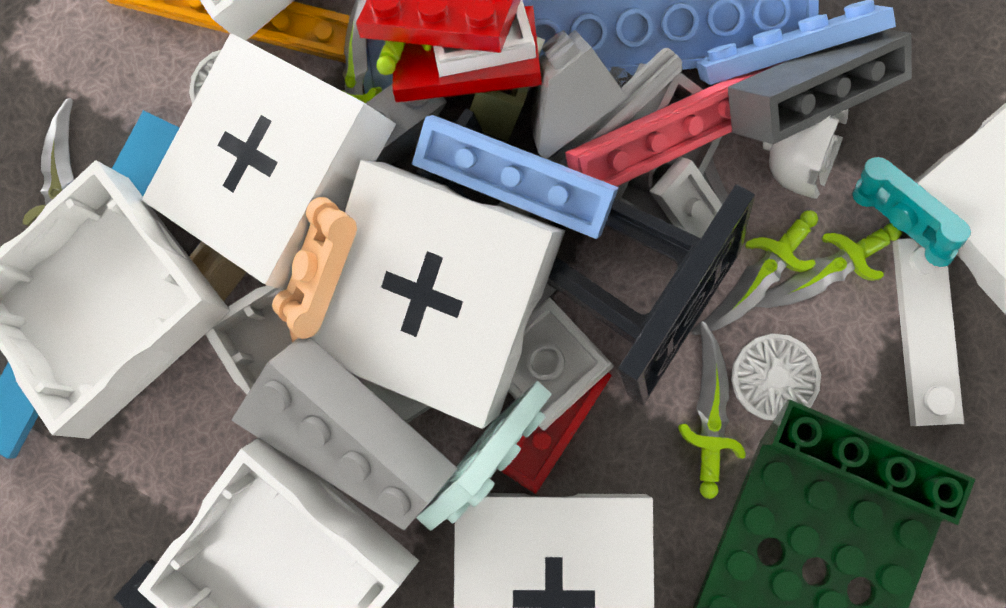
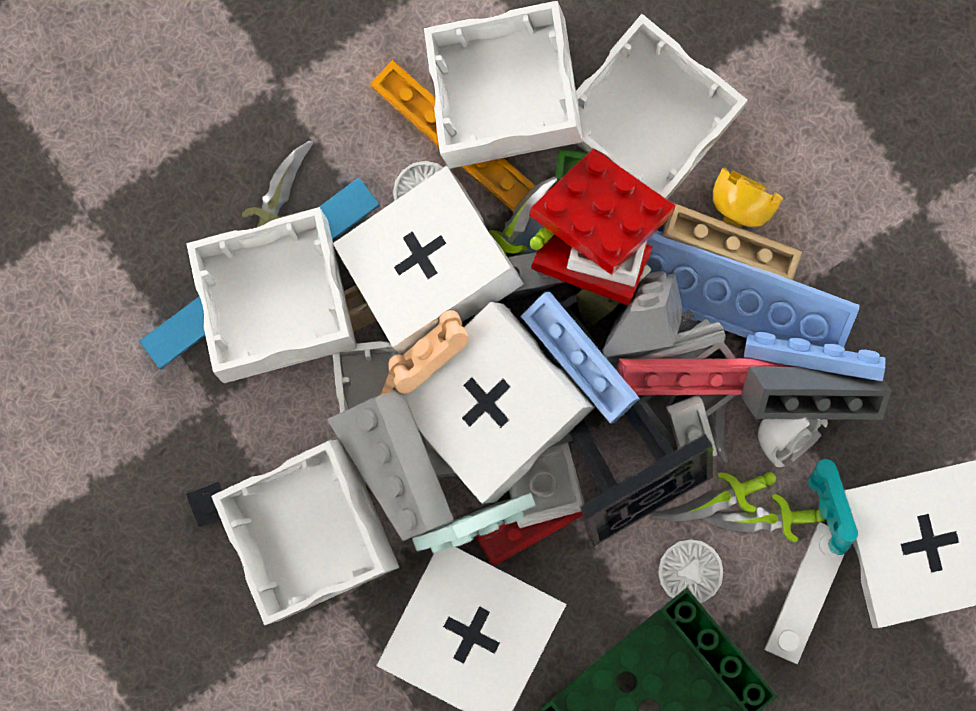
camera: 20 degrees right, 0 degrees up
(712, 411) = (636, 574): piece -> none

